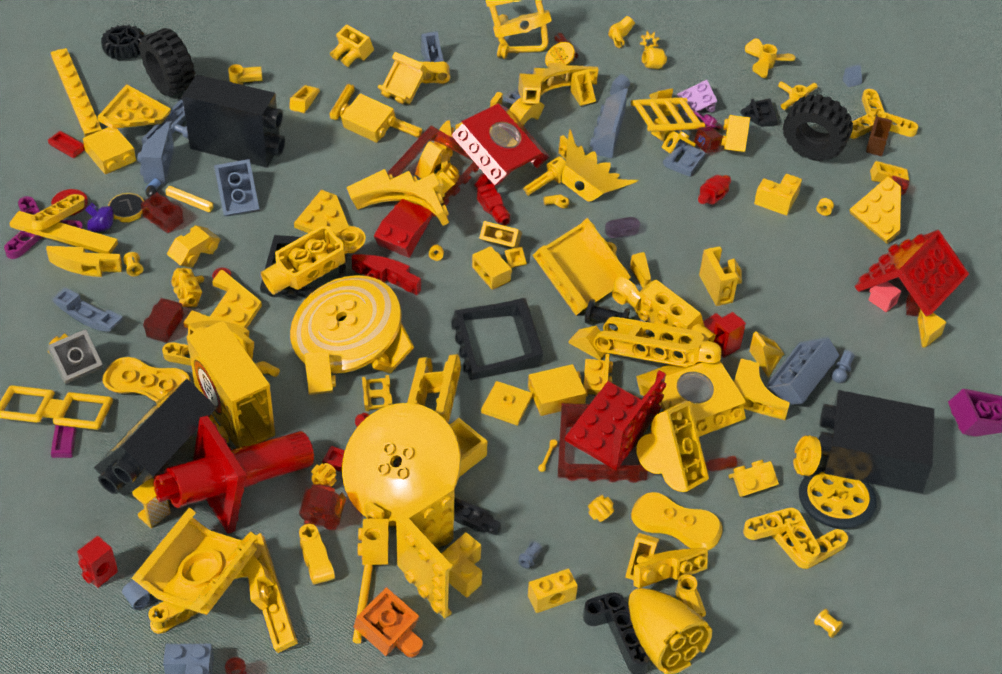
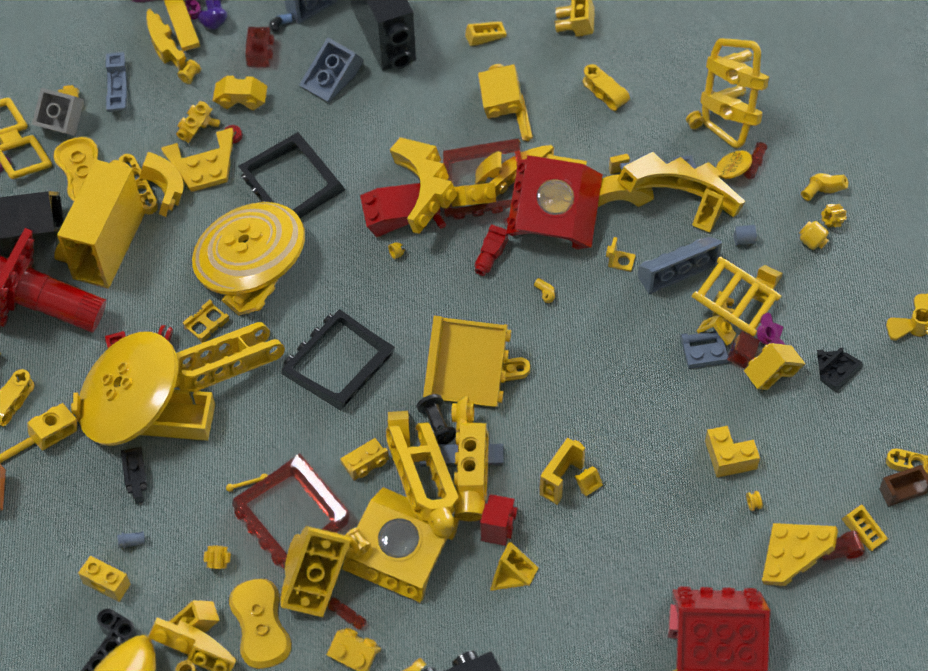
camera: 55 degrees right, 10 degrees up
(126, 207) = (244, 17): black tile -> none
(163, 320) = (150, 134): clear red brick -> none
(189, 198) = (293, 51): yellow axle -> none
(266, 368) = (162, 230): yellow arm -> none
(311, 257) = (288, 173): yellow brick -> none
(319, 372) = (181, 268): yellow brick -> none
(322, 210) = (361, 150): yellow plate -> none
(322, 506) = (52, 369): clear red brick -> none
(324, 474) = (88, 348): yellow gear -> none
(343, 99) = (510, 59): yellow axle -> none
(387, 269) = (337, 233): red slope -> none
(403, 79) = (570, 79): yellow panel -> none
(419, 536) = (43, 451): yellow bracket -> none
(431, 47) = (636, 71): sand blue slope -> none
(463, 556) = (76, 495): yellow brick -> none
(491, 267) = (413, 300): yellow brick -> none
(500, 235) = (454, 279): yellow brick -> none
(506, 403) = (276, 415): yellow plate -> none
(515, 257) = (446, 307): yellow slope -> none
(555, 171) = (575, 265): yellow piece -> none
(556, 387) = (319, 440): yellow brick -> none
(593, 175) = (596, 291): yellow piece -> none
(616, 422) = (304, 500): red bracket -> none
(622, 227) = (562, 359): clear purple plate -> none
(640, 268) = (521, 407): yellow slope -> none
(700, 97) = (797, 305): lavender hinge -> none
(714, 189) = (679, 397): red piece -> none
(755, 393) = (452, 581): yellow arch -> none
(795, 93) = (892, 383): yellow bar -> none
(803, 370) = (514, 612): sand blue slope -> none
(822, 112) = (836, 425): black tyre -> none
(840, 374) = (545, 645): sand blue axle -> none

